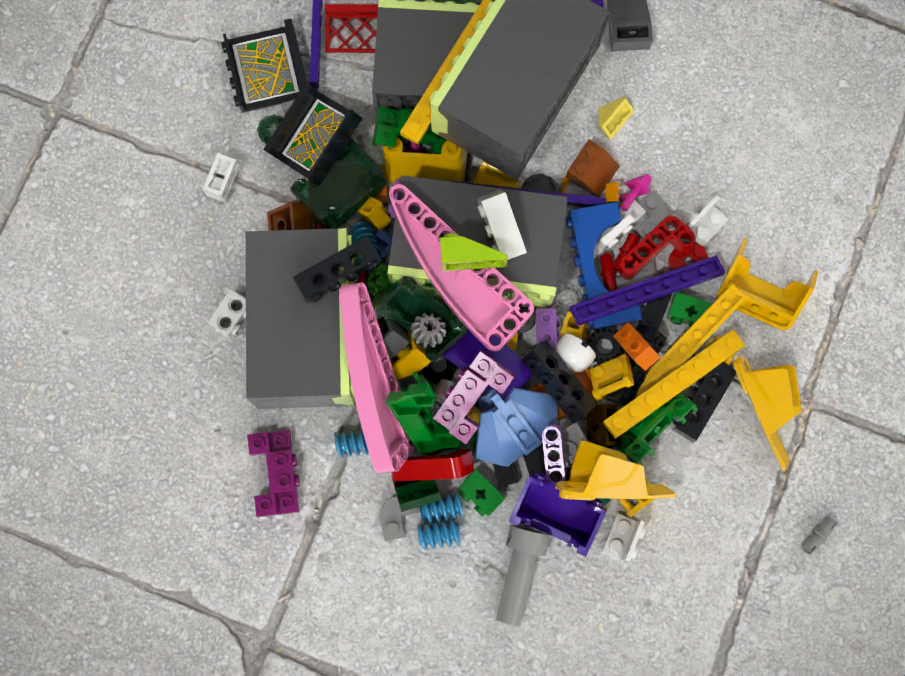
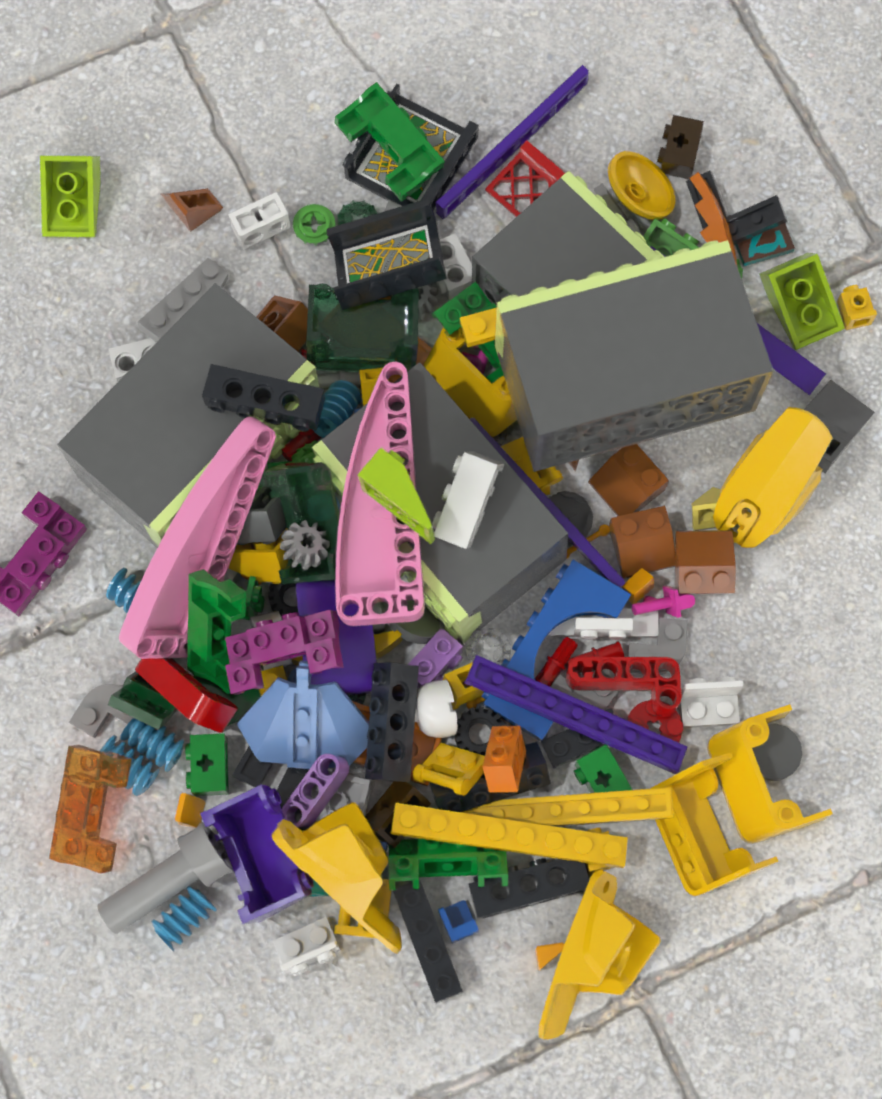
camera: 45 degrees right, 5 degrees down
(97, 257) = (69, 195): none -> lime slope
(173, 203) = (193, 206): none -> dark orange slope
(227, 265) = (181, 299): none -> light grey wing
(250, 144) = (305, 217): none -> bright green gear
(252, 63) = (396, 135): none -> green bracket
(357, 105) = (456, 265): none -> white brick
(438, 576) = (82, 807): none -> clear orange bracket
(494, 526) = (189, 810): none -> light orange slope
(545, 583) = (182, 917): none -> dark azure piece
(557, 145) = (628, 480): none -> dark orange slope
(631, 74) = (773, 478): none -> yellow piece
(636, 151) = (704, 562): none -> dark orange slope
(683, 477) = (428, 942): none -> black brick
(686, 452) = (458, 921): none -> blue panel
(746, 426) = (546, 953): none -> light orange slope
(758, 219) = (779, 754): none -> dark grey tile
(763, 248) = (745, 787): none -> yellow windscreen

